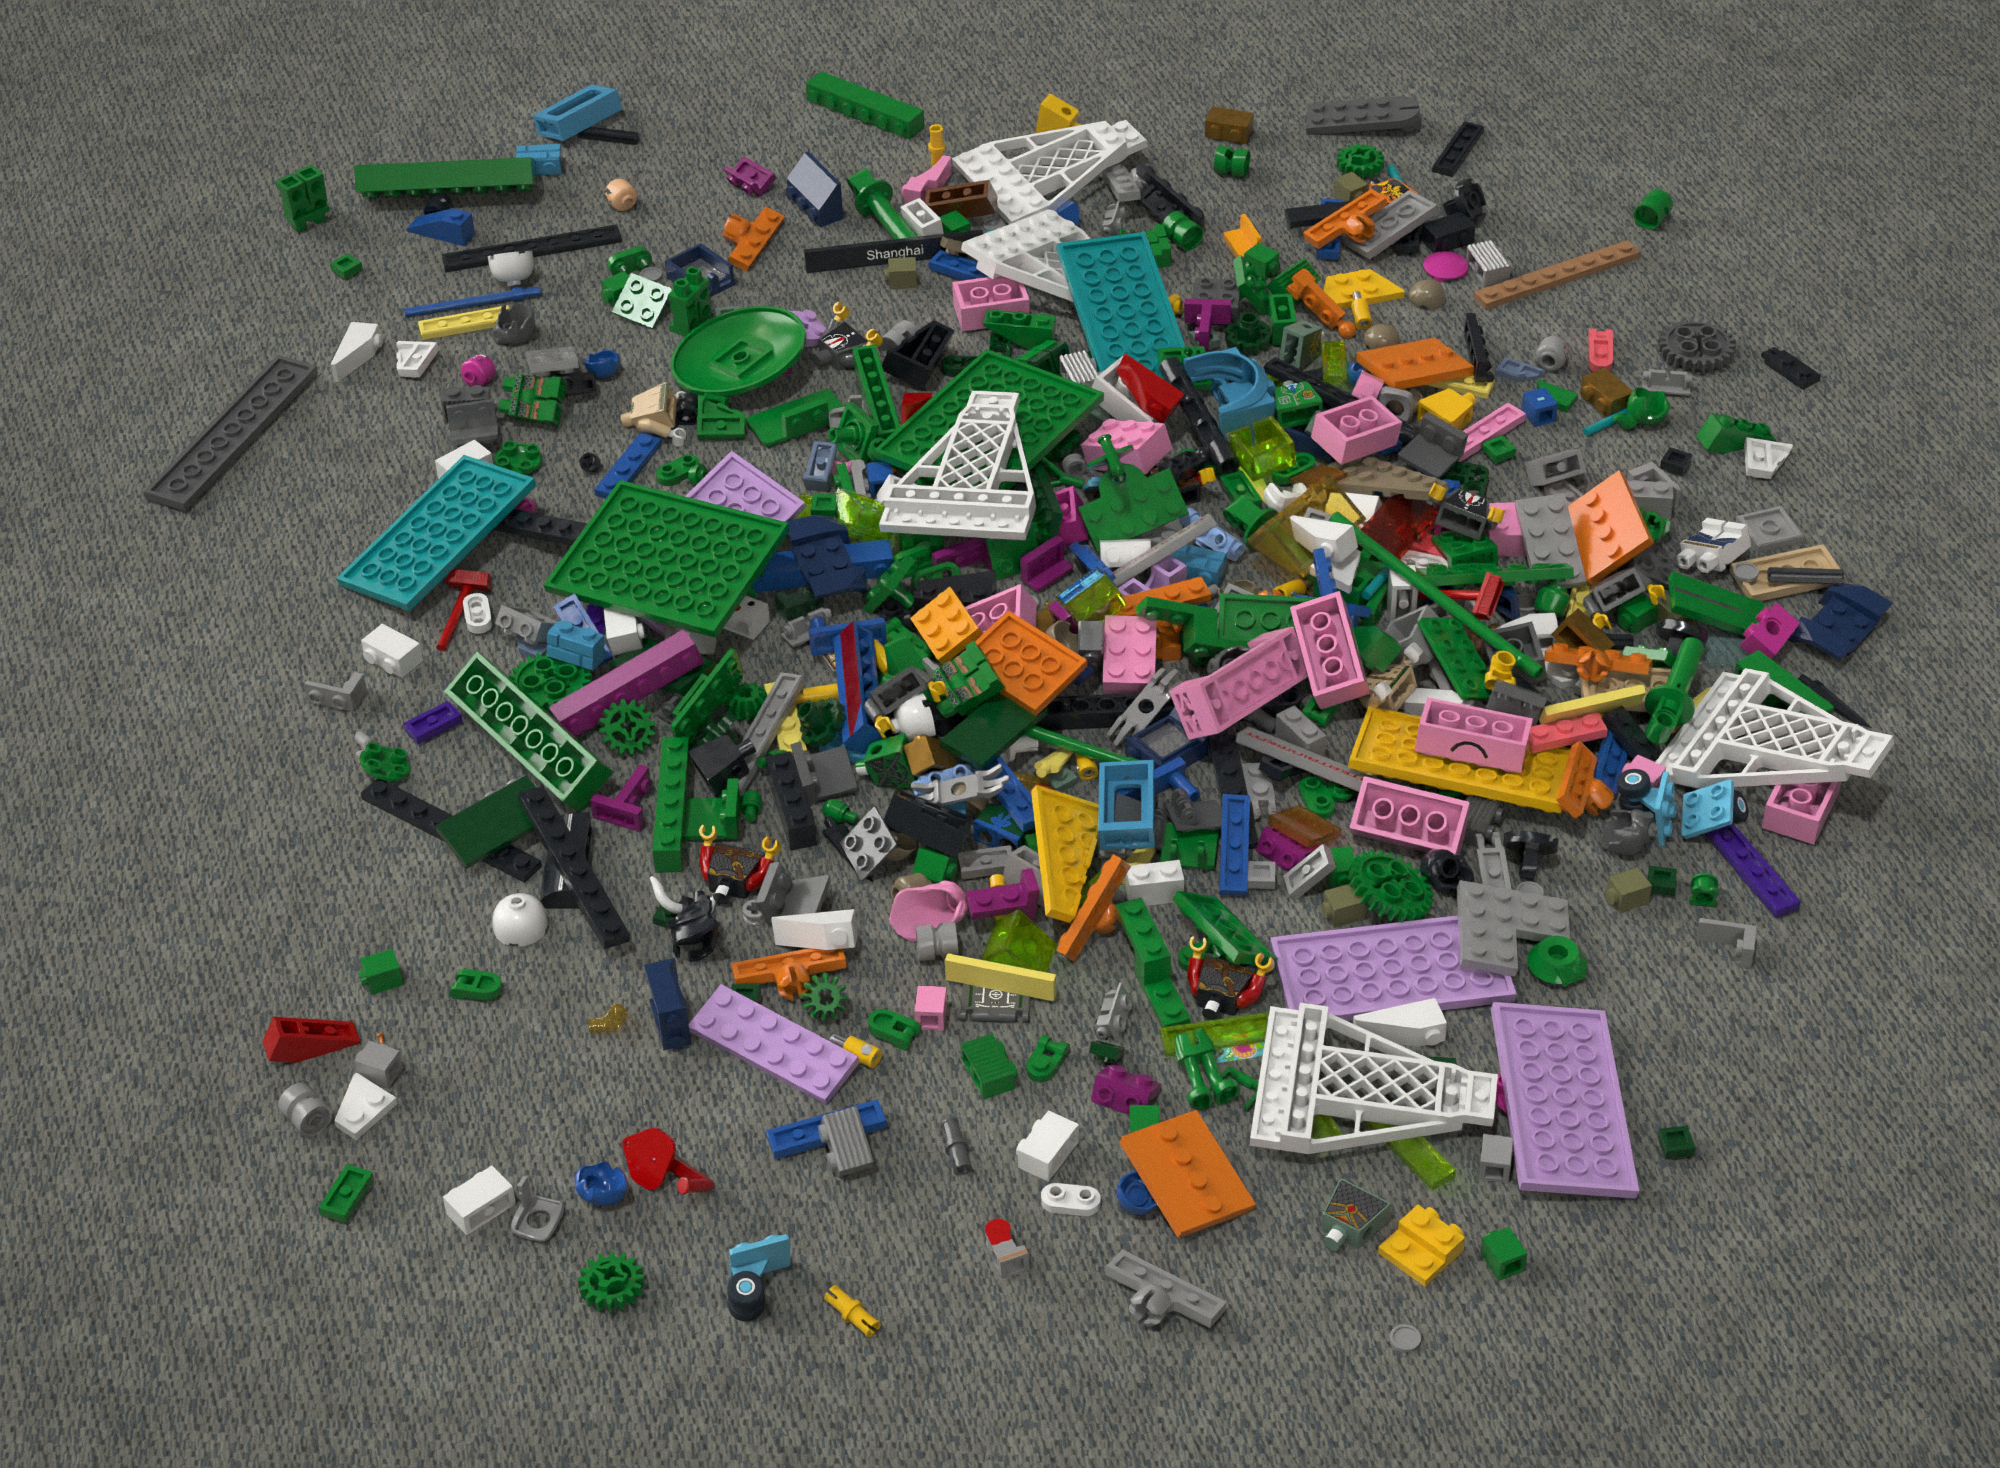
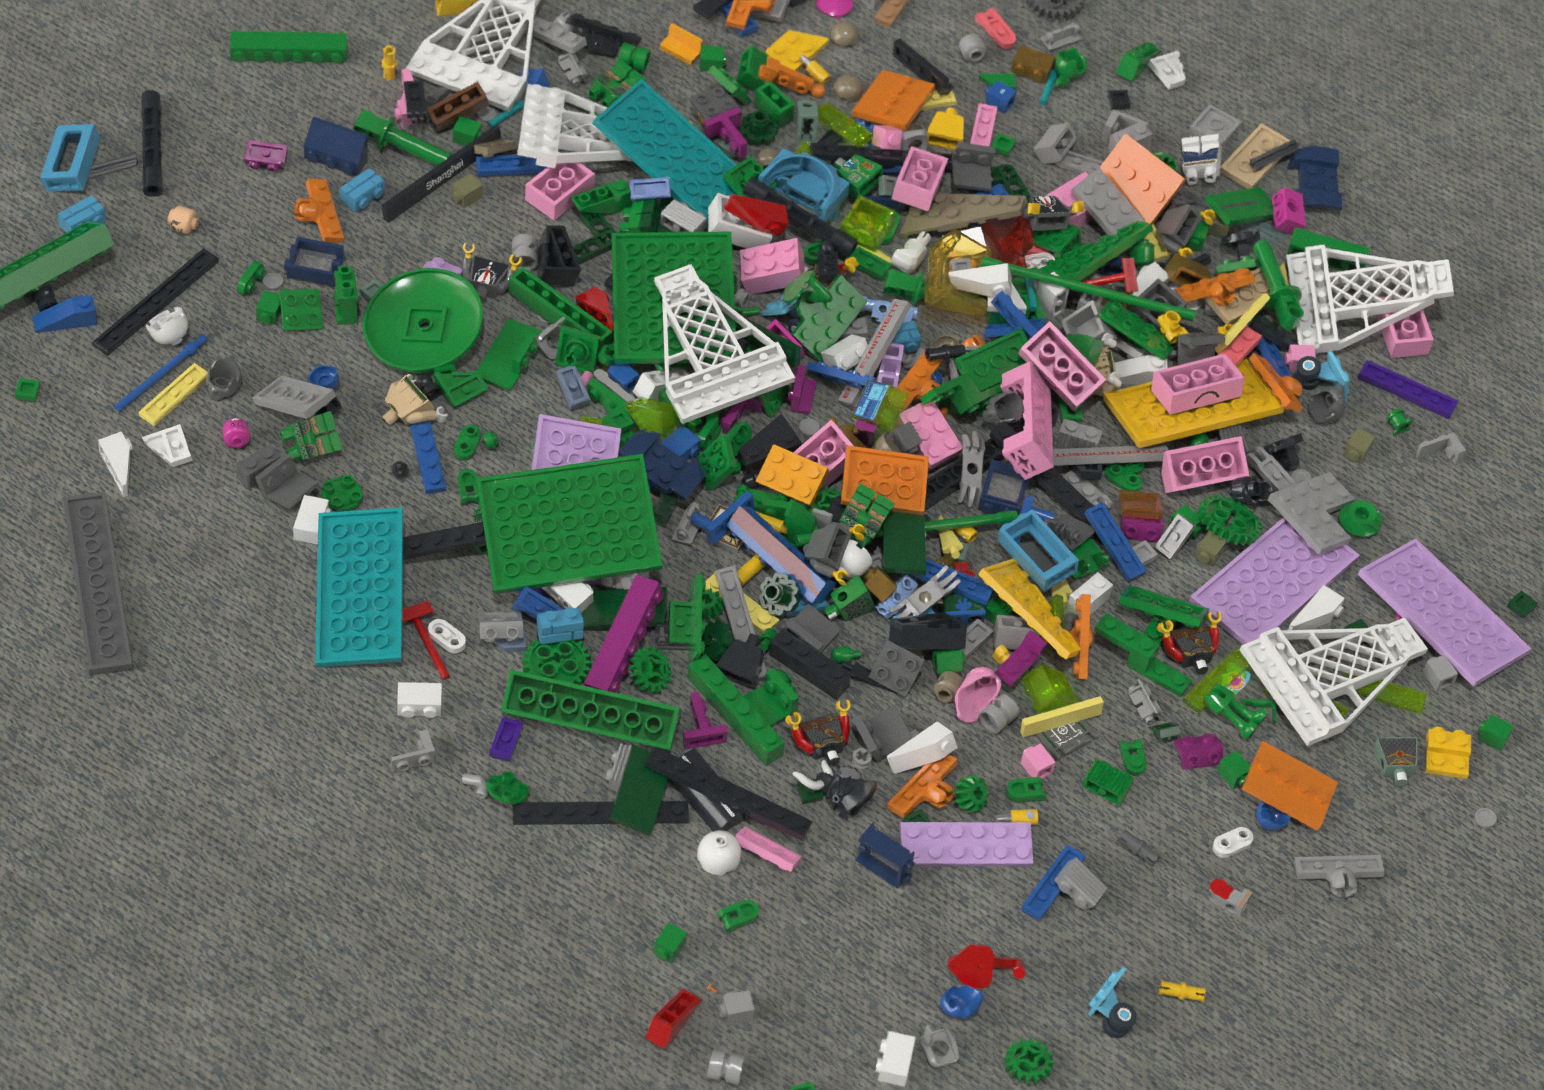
camera: 45 degrees left, 10 degrees up
(362, 1106) = (752, 1041): white wing -> none
(568, 941) = (768, 849): none -> bright pink plate
(610, 1021) = (849, 888): clear yellow arm -> none
(661, 130) = (151, 143): none -> black piece
(805, 234) = (362, 190): none -> dark azure brick
(891, 609) = (731, 485): black plate -> none
(921, 218) = (444, 136): white brick -> none
(922, 180) = (415, 100): none -> black hinge
(1047, 1145) = (1192, 815): white brick -> none
(1068, 330) = (650, 188): none -> tile
(1213, 583) = (944, 352): none -> black axle
(1294, 587) = (973, 327): yellow piece -> none
(1312, 476) = (915, 227): clear orange piece -> none
(1518, 371) = (957, 72): sand blue tile -> none
(1662, 880) = (1371, 426): dark green plate -> none
(1712, 808) = (1362, 363): medium azure plate -> none
(1745, 572) = (1235, 169): light grey piece -> none
(1839, 706) = (1348, 238): black bar -> none

